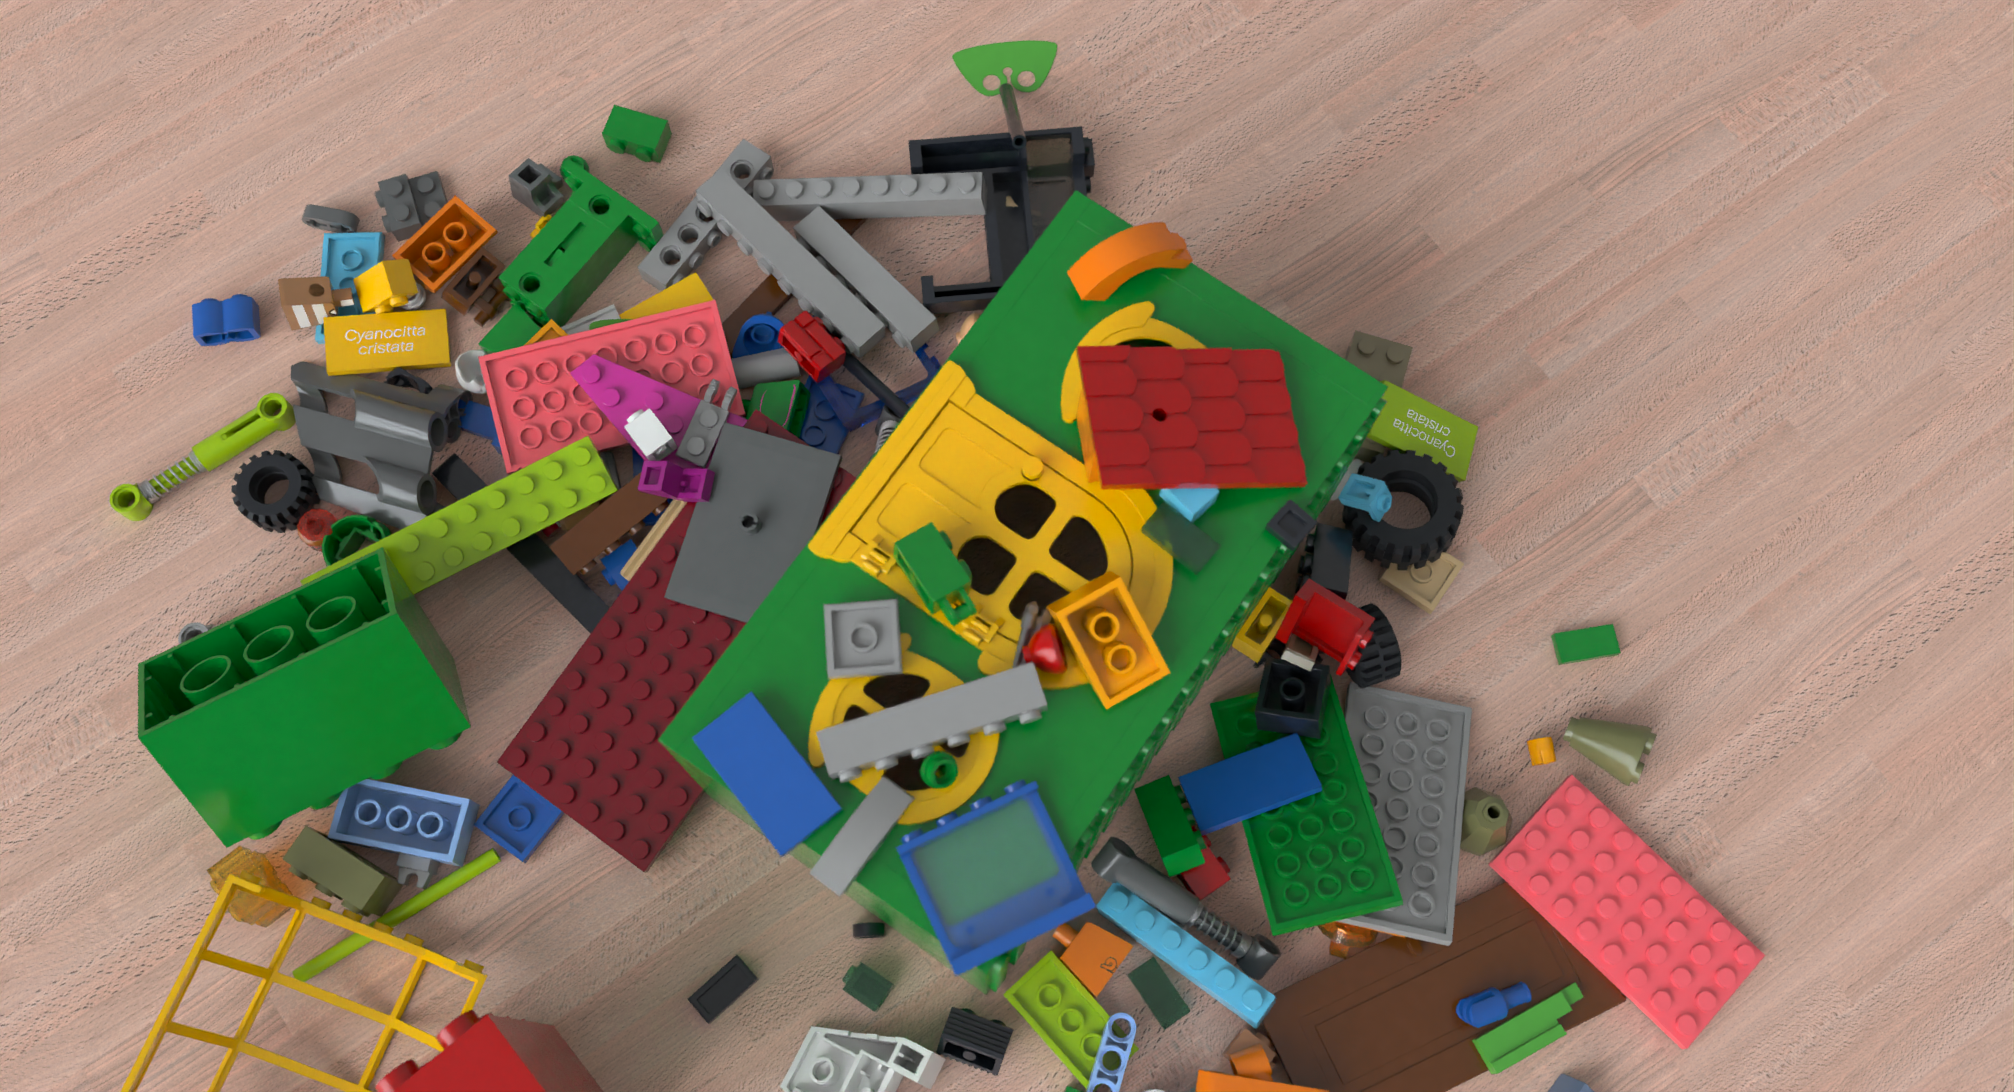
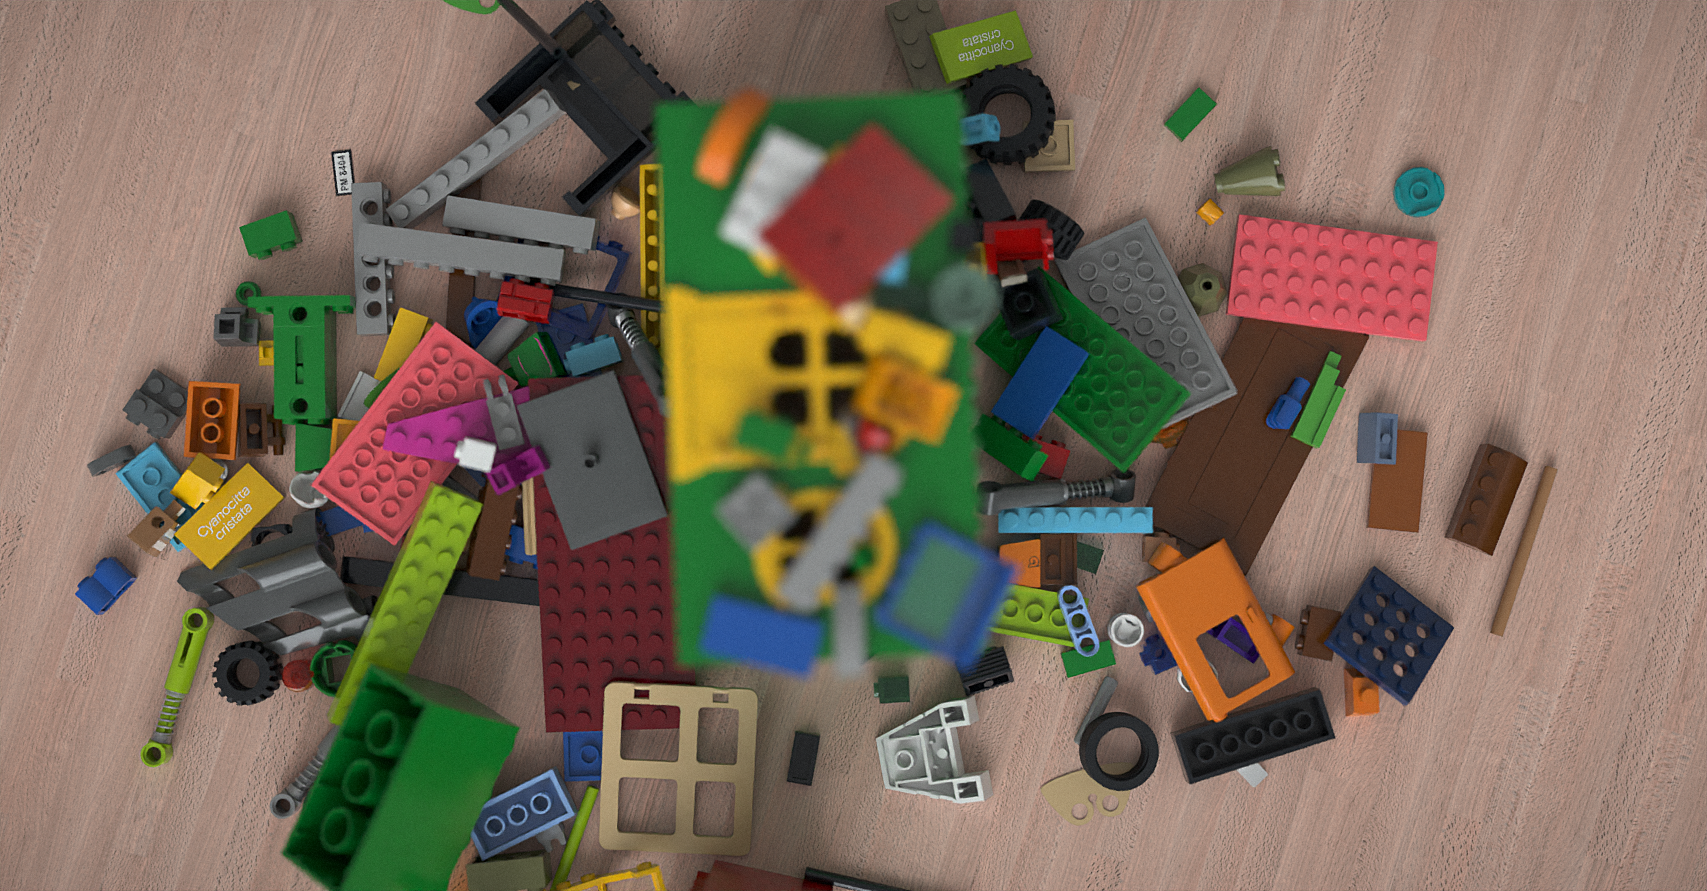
camera: 30 degrees left, 15 degrees up
(596, 905) = (684, 770): none -> tan window
(746, 129) = (342, 172): none -> sticker
(827, 436) = (593, 357): none -> medium azure brick
(1123, 510) = (858, 310): none -> tan brick
(1137, 981) = (1058, 559): none -> reddish brown plate
(1145, 320) = (774, 181): none -> white brick
(1151, 580) = (904, 342): none -> yellow brick
(1248, 562) = (964, 315): none -> sand green wheel
(1776, 891) = (1418, 192): none -> teal tile

